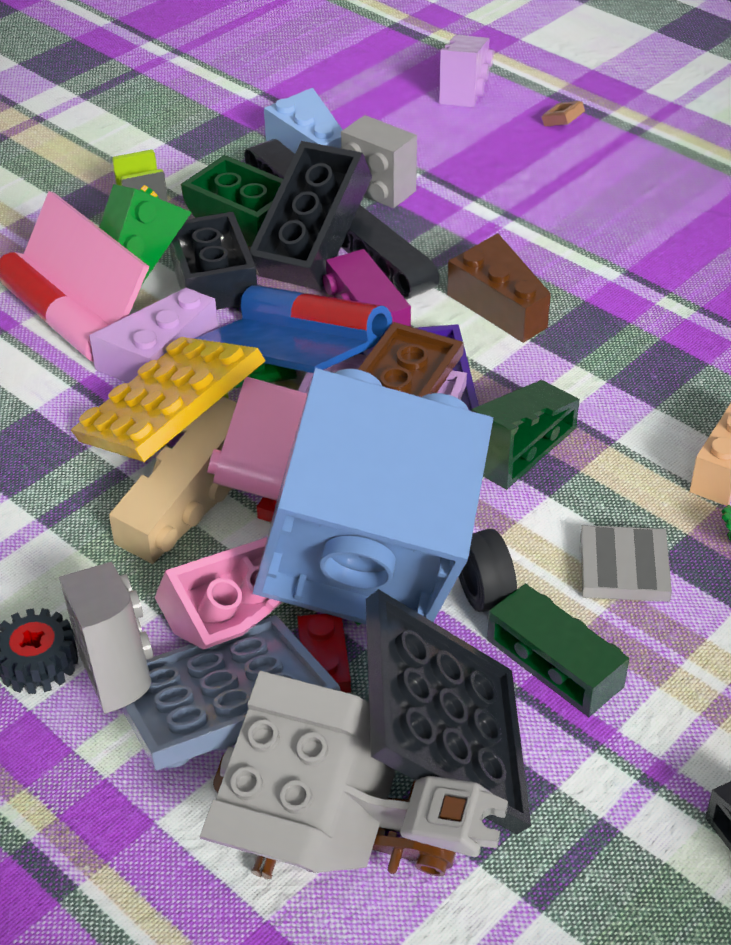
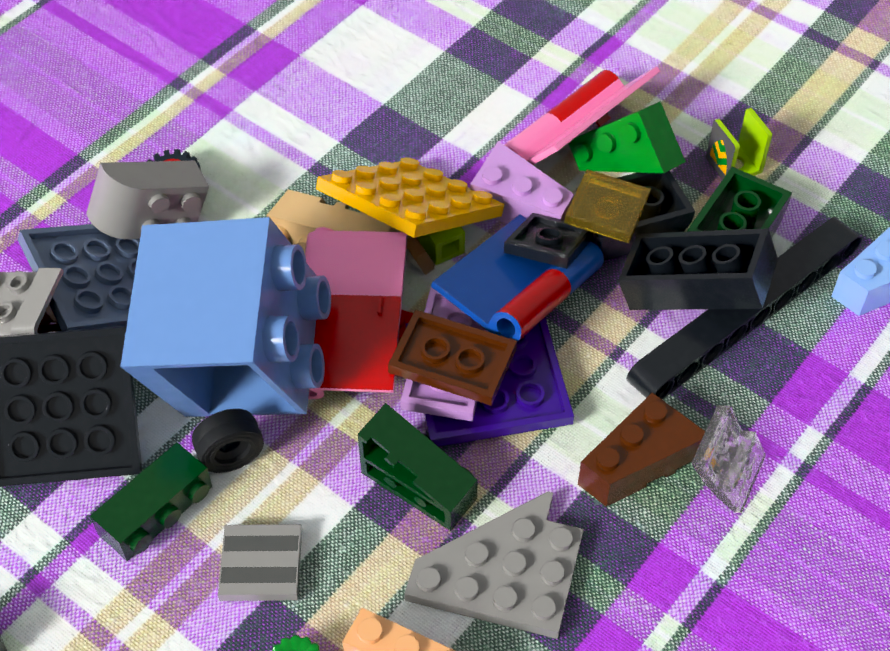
camera: 85 degrees right, 10 degrees up
(220, 256) = (607, 206): none -> clear yellow tile
(246, 308) = (547, 241): none -> black tile
(361, 280) = (610, 341): magenta brick -> none
(390, 158) = (830, 325): light grey brick -> none
(514, 232) = (729, 459): none -> clear slope
(621, 390) = (503, 572): none -> light grey wing

